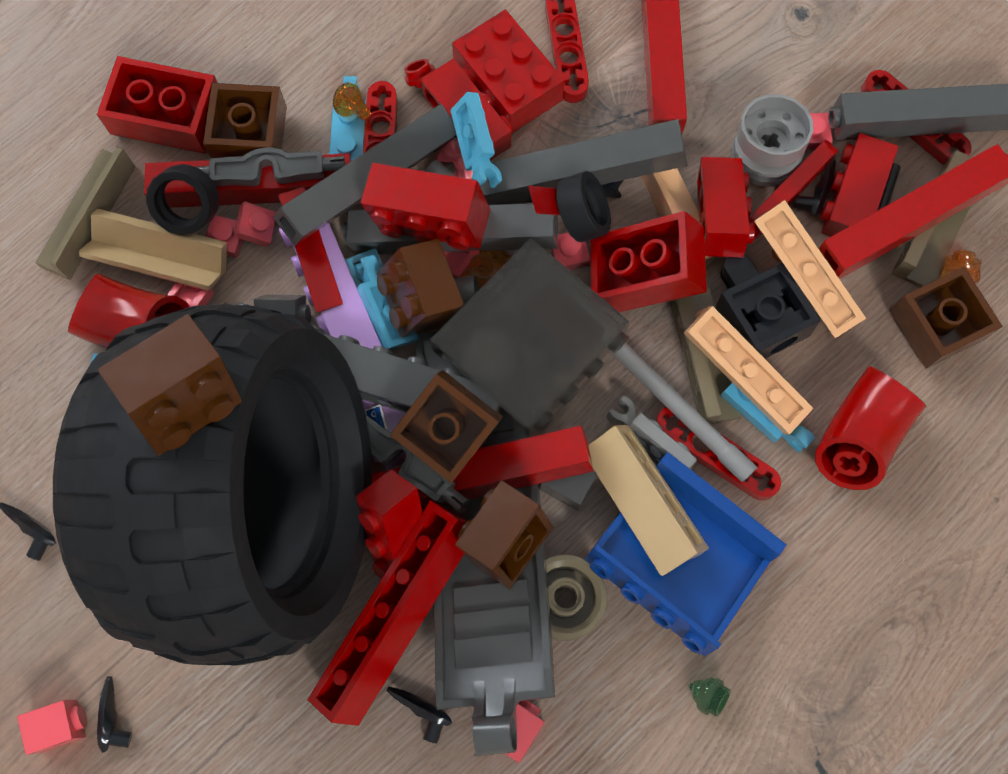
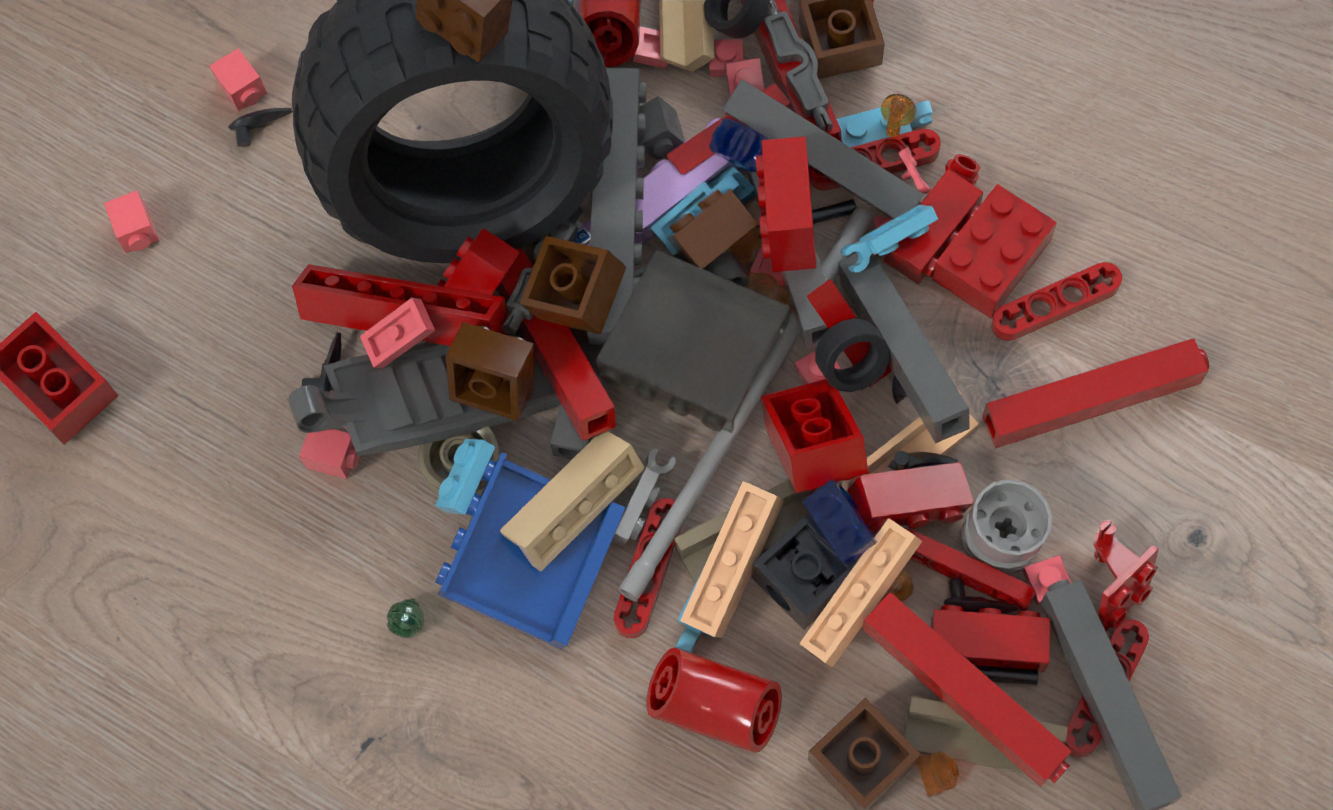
camera: 80 degrees right, 5 degrees down
(341, 236) = (737, 144): none -> clear blue gear
(399, 107) = (910, 163): none -> coral piece
(431, 620) = (397, 333): none -> coral plate
(601, 593) = (468, 468): none -> medium azure plate
(687, 189) = (904, 460): none -> black bar
(744, 263) = (839, 521): none -> clear blue plate
(840, 58) = (1131, 573): none -> red plate

